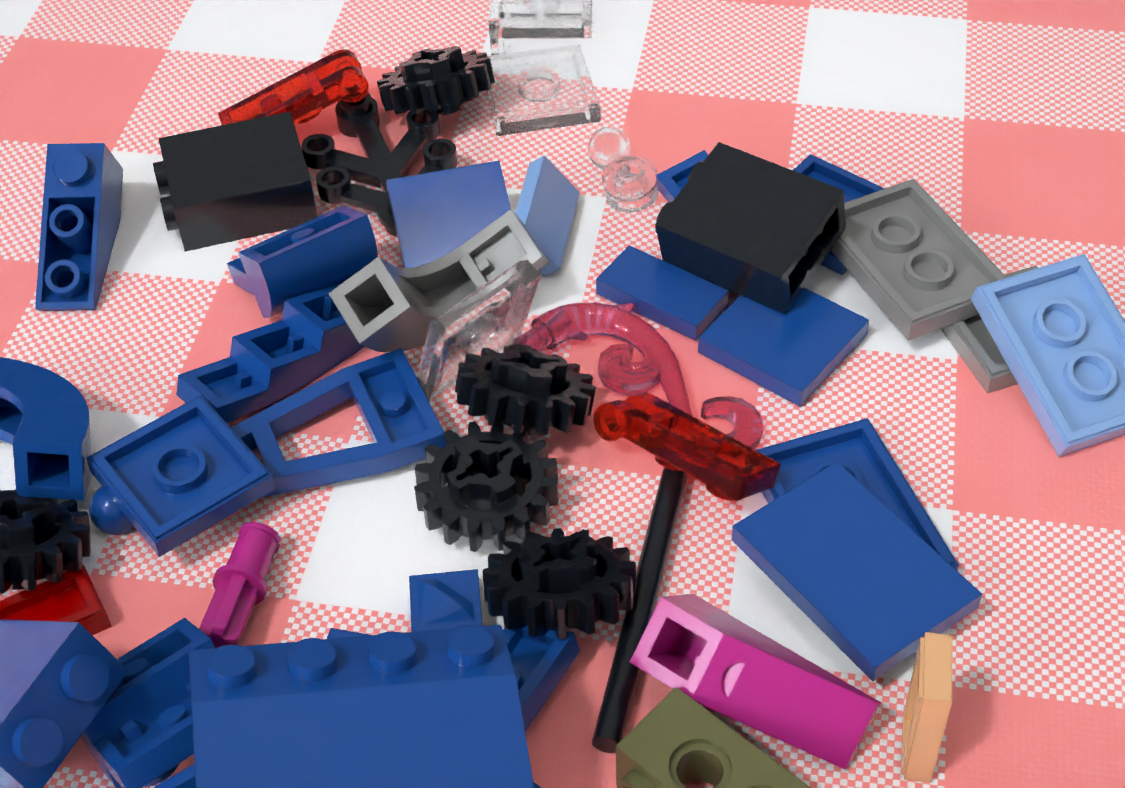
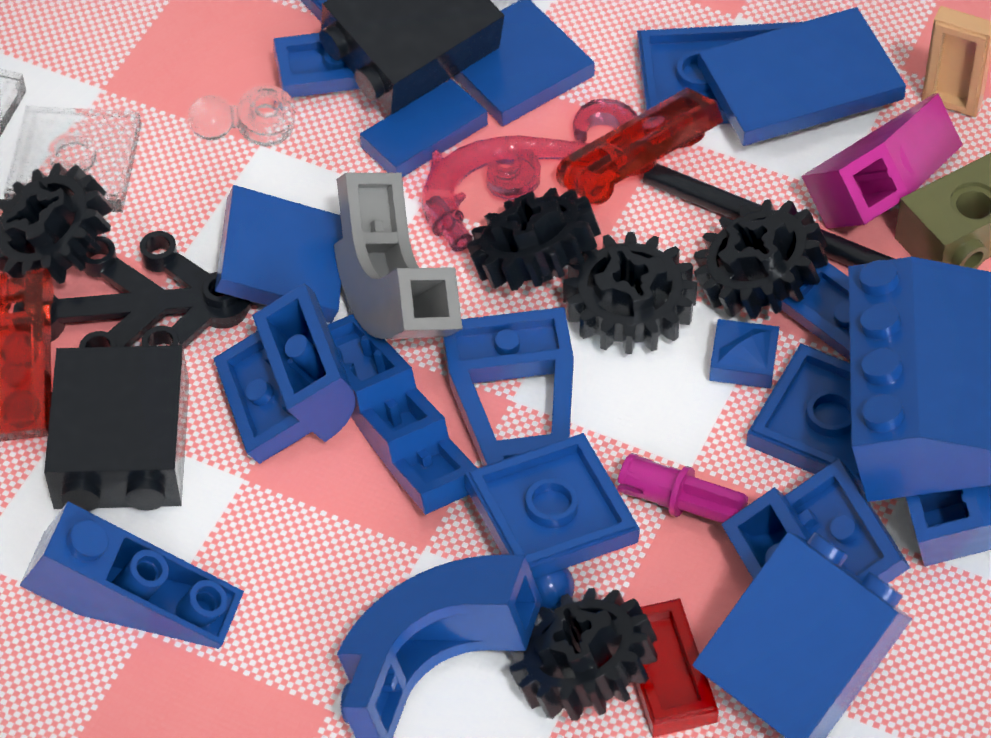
camera: 75 degrees left, 5 degrees up
(484, 319) = (469, 235): clear tile -> none
(548, 210) = (285, 182): light blue tile -> none

